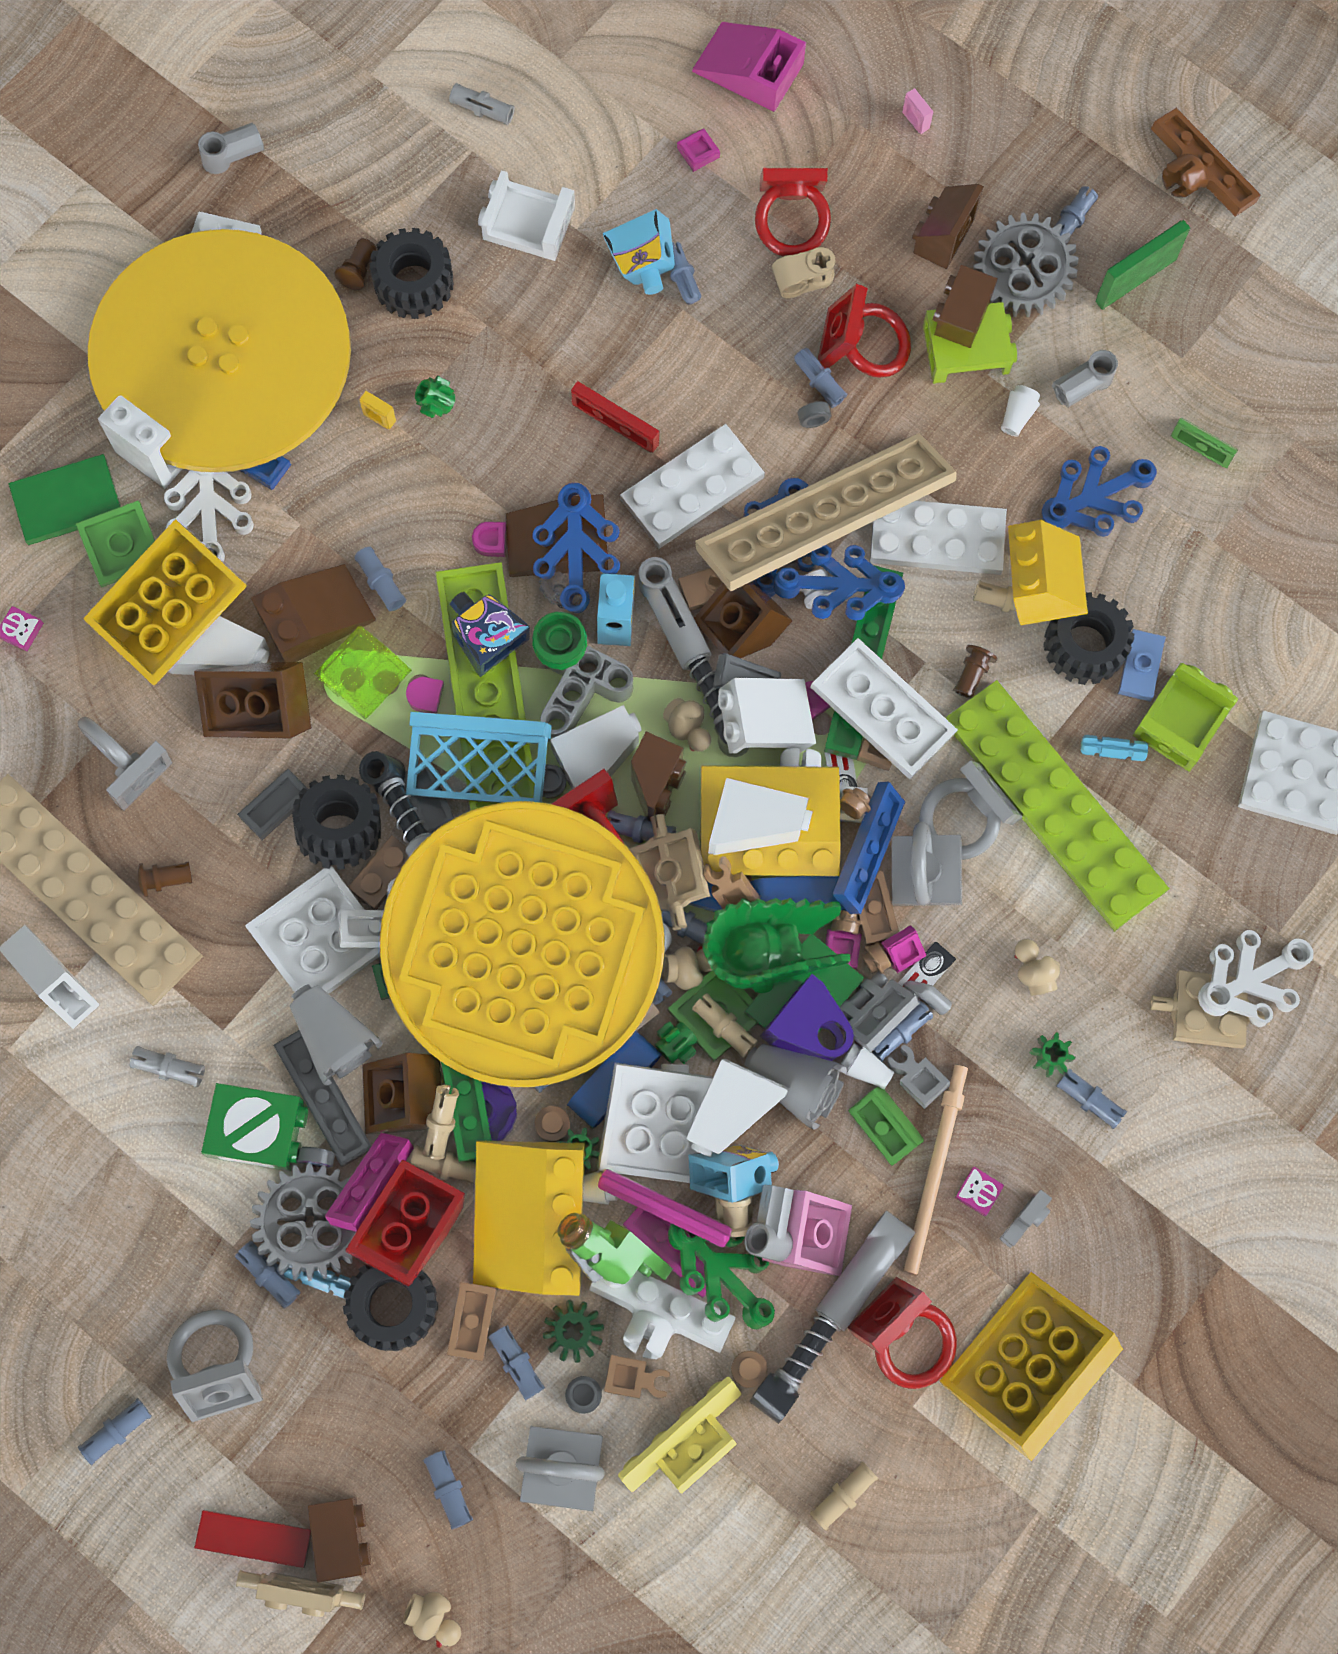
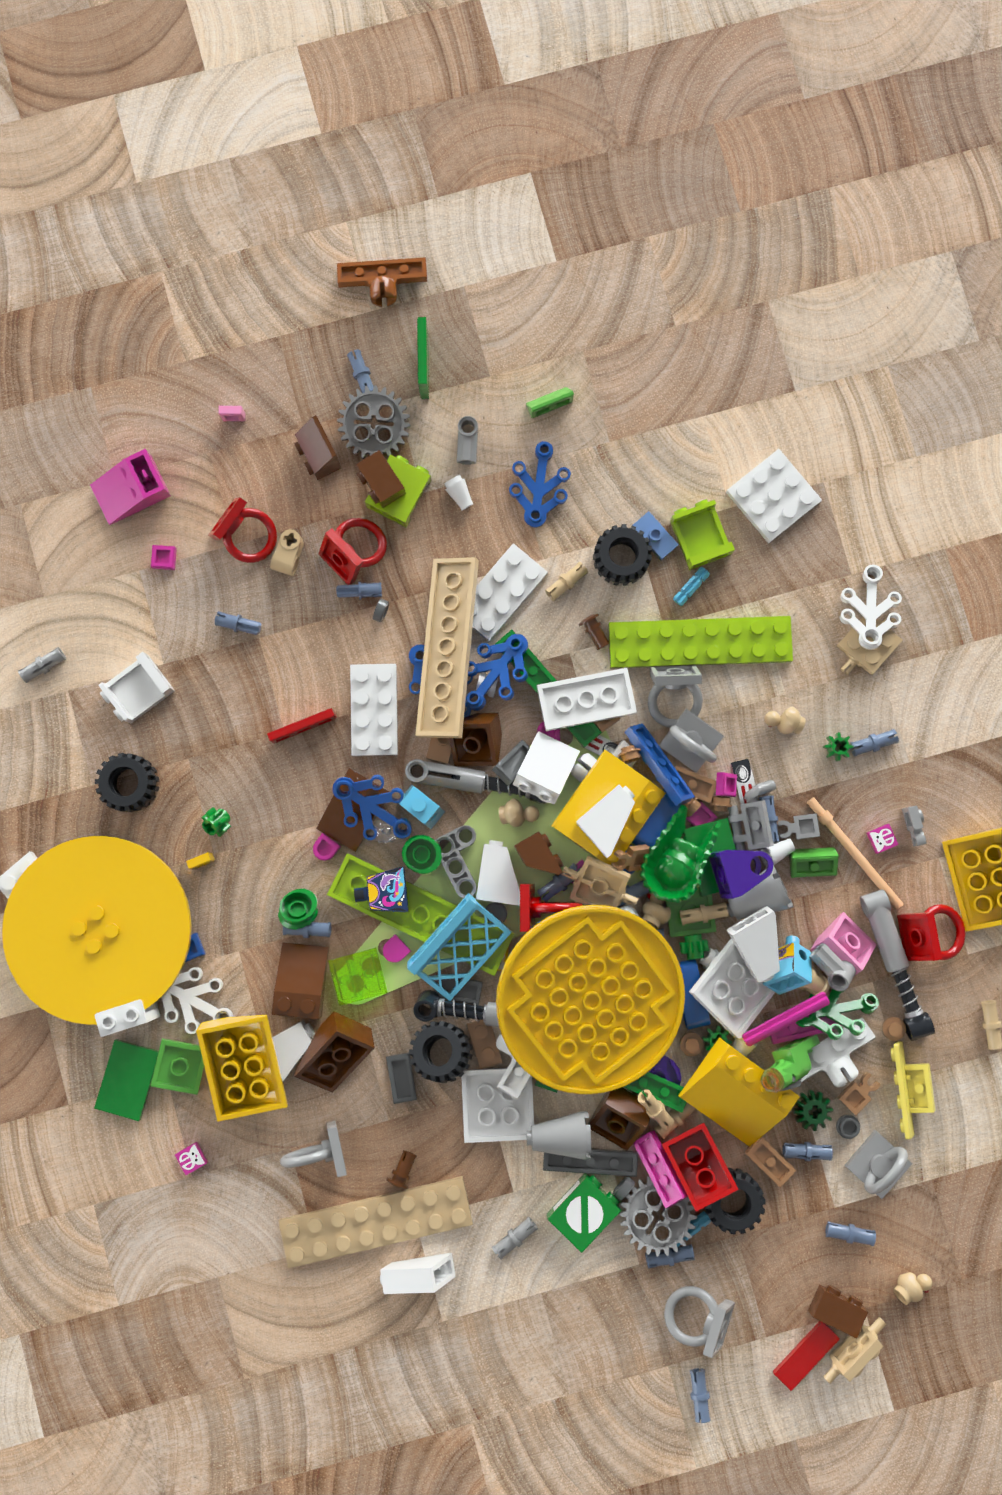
camera: 55 degrees left, 10 degrees up
(354, 269) = (97, 811): reddish brown pin -> none
(396, 551) = (298, 909): none -> green piece
(643, 249) = (209, 637): medium azure torso -> none
(1046, 572) = (571, 551): yellow slope -> none

